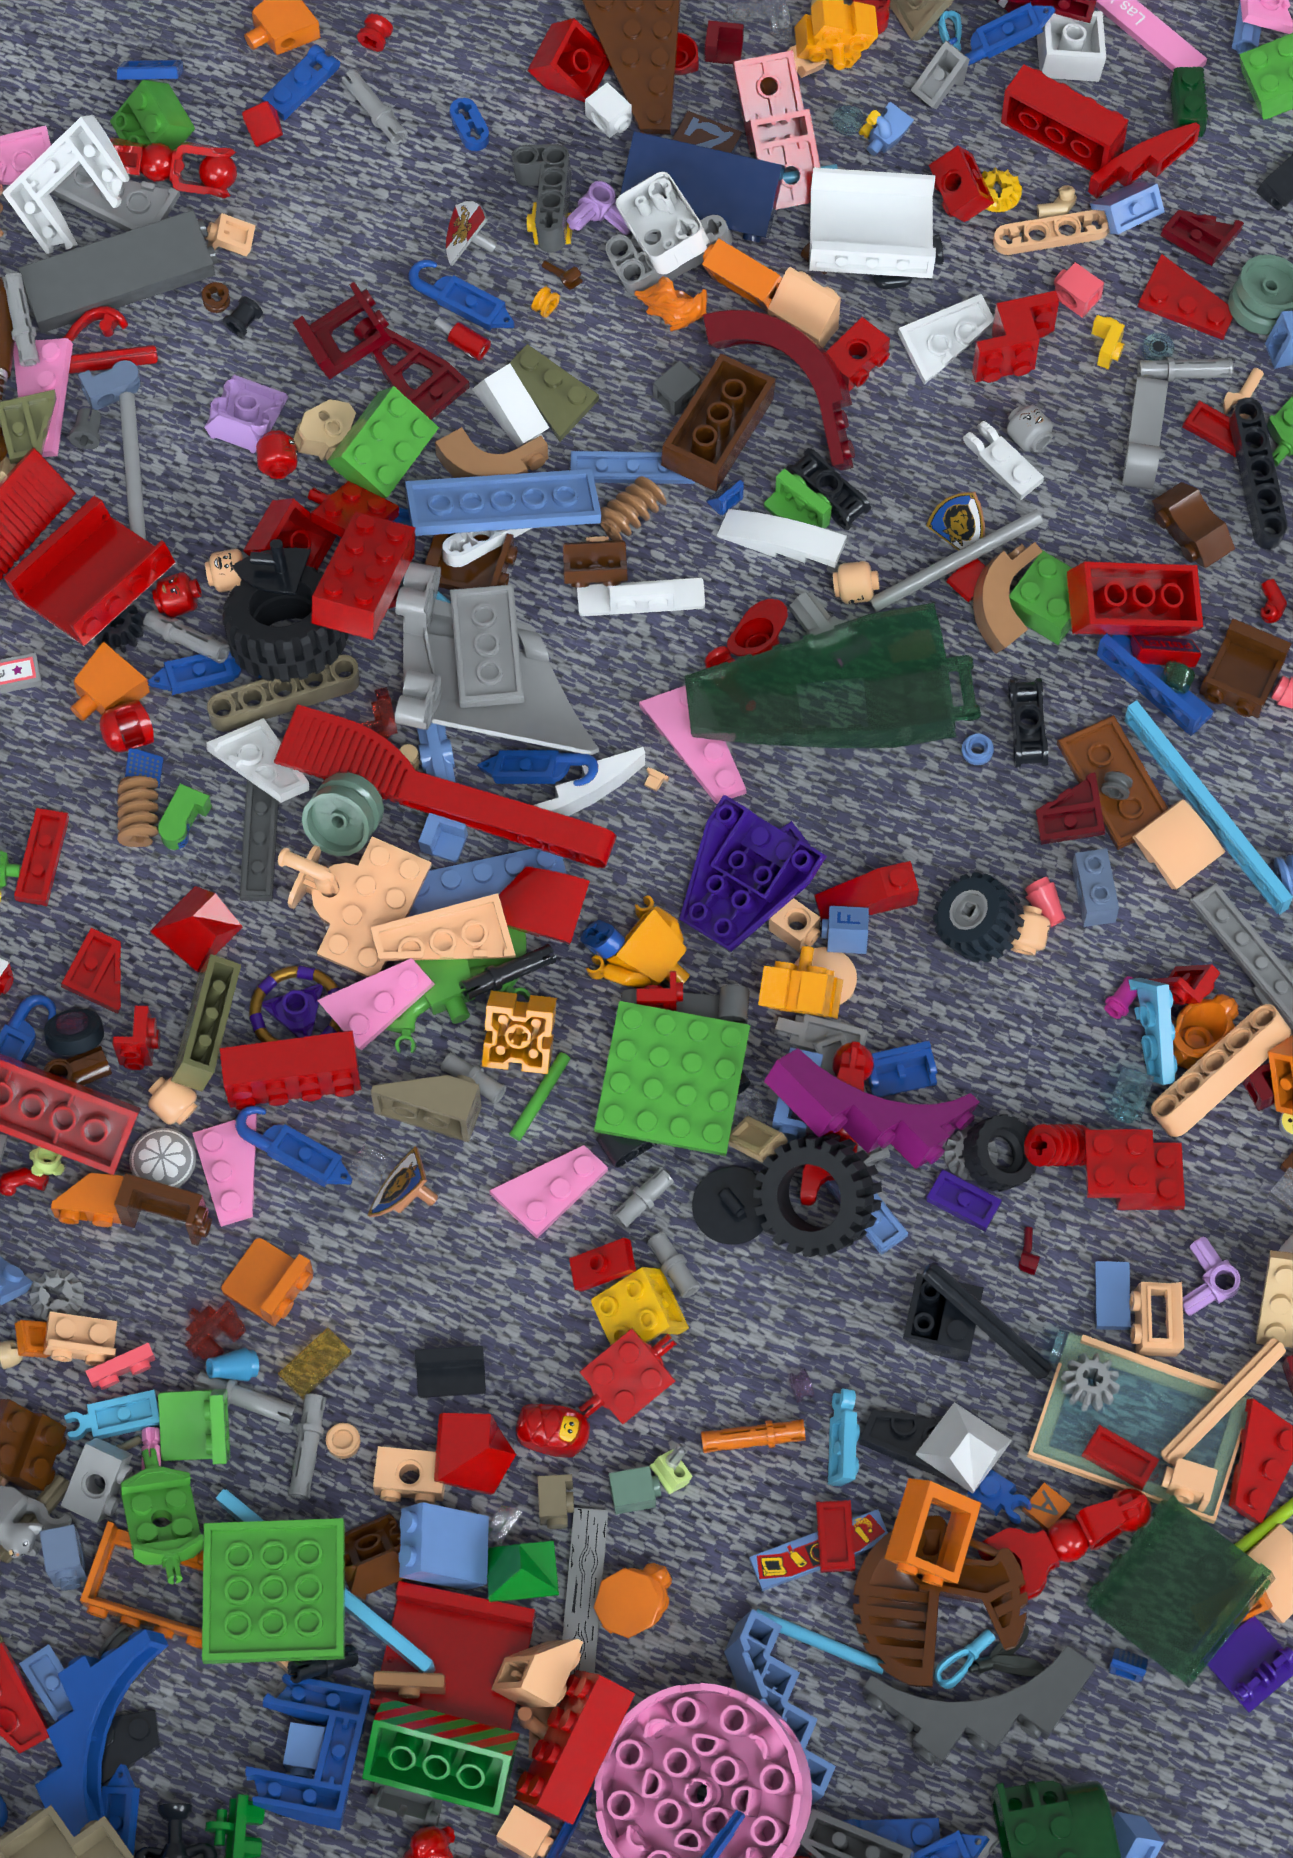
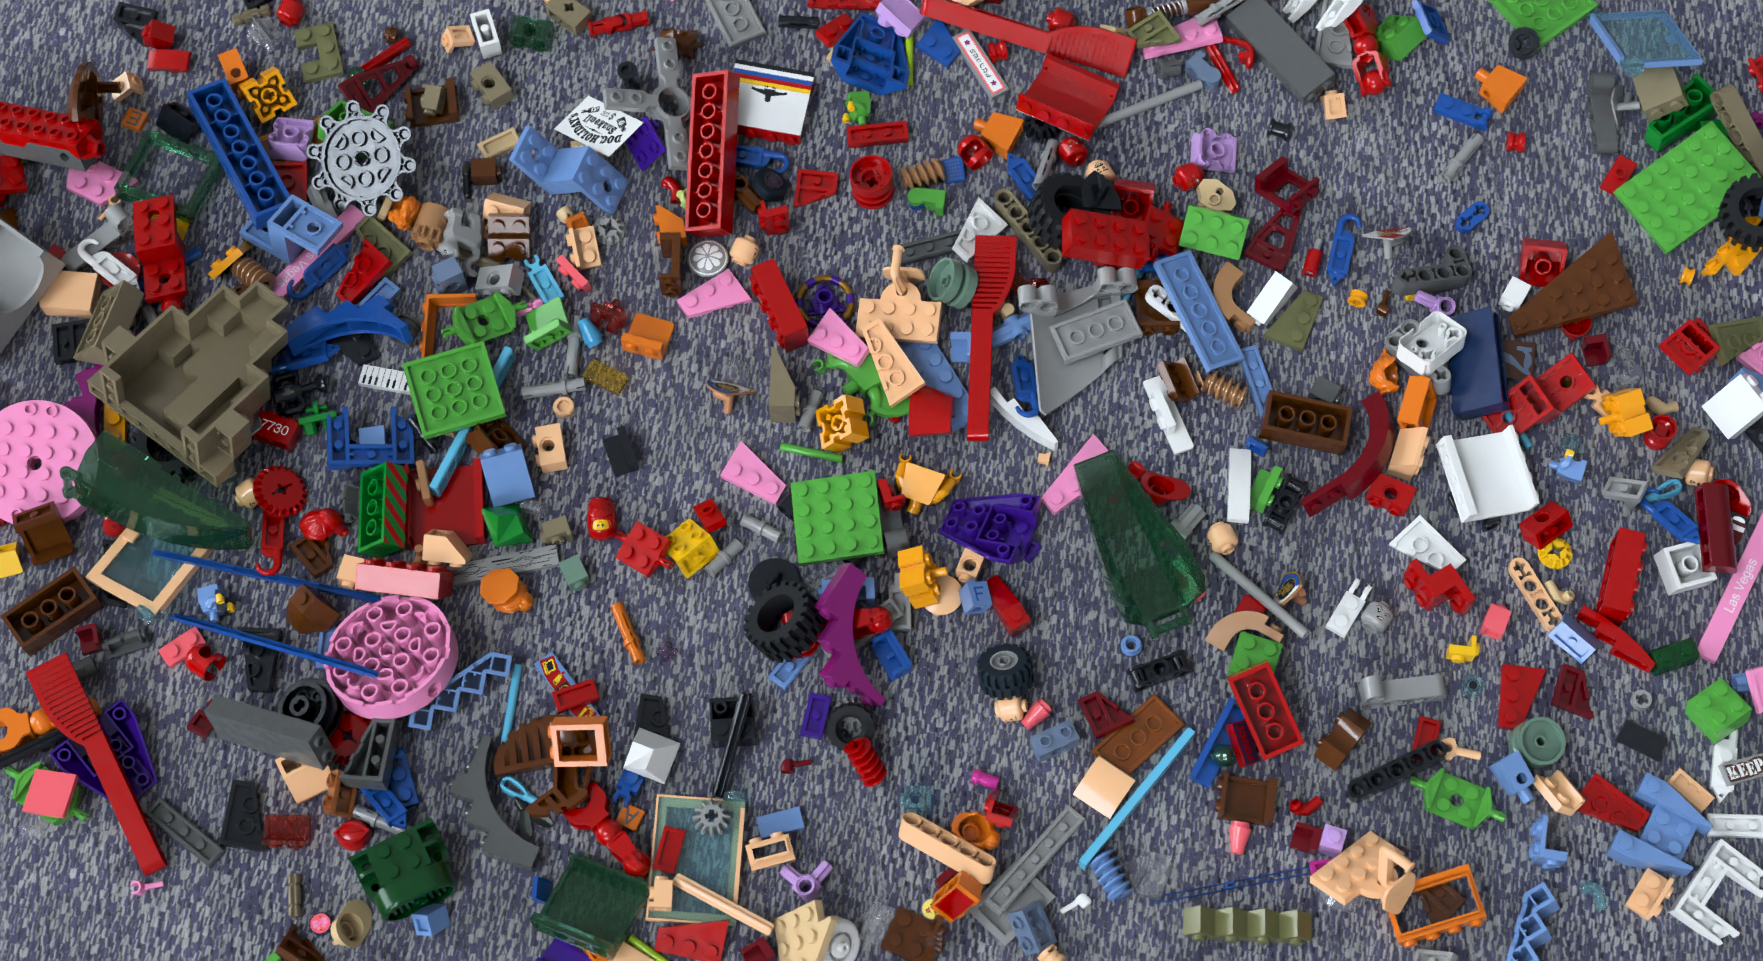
camera: 75 degrees right, 0 degrees up
(122, 866) = (872, 182): none -> red wheel
(197, 927) = (860, 232): red slope -> none
(202, 1704) = (384, 379): none -> white tile
(206, 1023) = (794, 250): olive brick -> none
(222, 291) = (1288, 105): reddish brown bush -> none
(262, 123) = (1422, 98): red slope -> none
(294, 1150) = (733, 325): blue plate -> none
(471, 1452) = (570, 475): red slope -> none
(495, 977) = (872, 398): black pin -> none
(602, 939) = (920, 454): blue beam -> none
(671, 1469) = (596, 590): yellowish green piece -> none
(756, 1138) = (812, 577): tan tile -> none
(843, 1437) = (643, 685): medium azure plate -> none
(1116, 785) = (1130, 735): dark grey bush -> none
(1134, 1169) = (864, 812): red bracket -> none
(1155, 1017) = (962, 803): medium azure wing -> none
(1178, 369) = (1459, 699): light grey pin -> none
(1238, 152) = (1648, 698): none -> light grey bush

